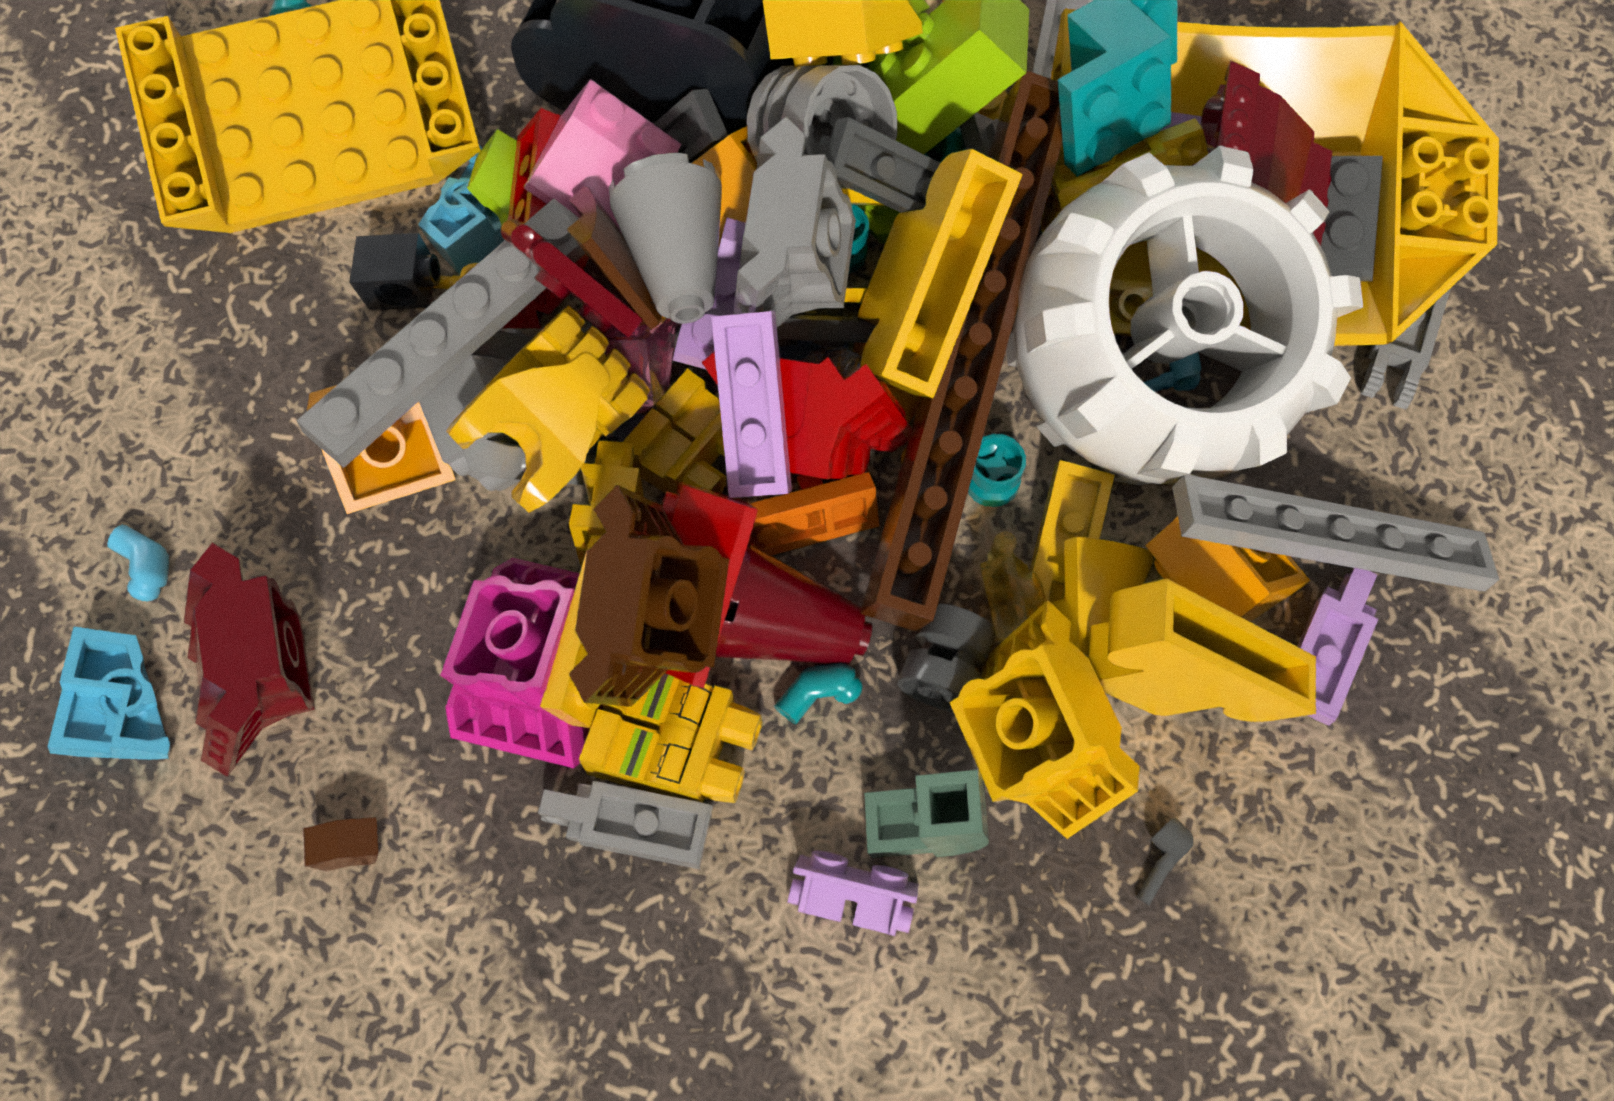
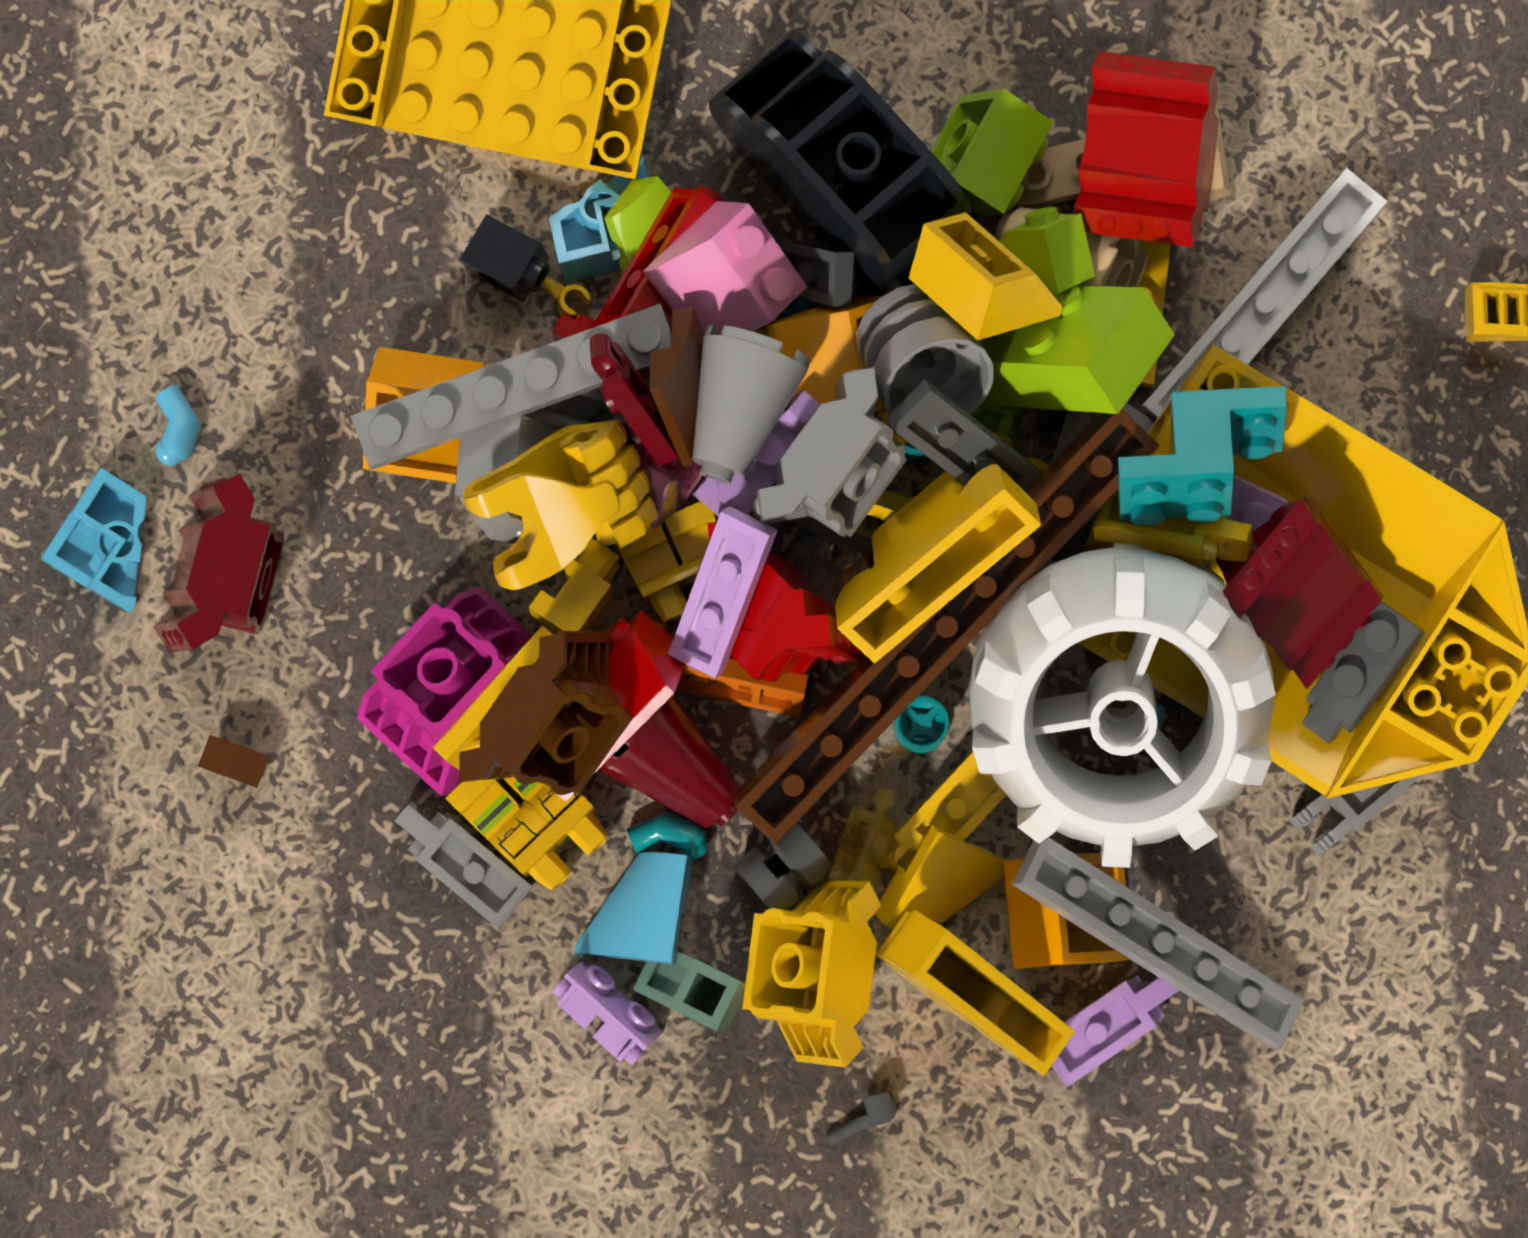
camera: 30 degrees right, 15 degrees up
(833, 775) = (642, 911): none -> medium azure slope

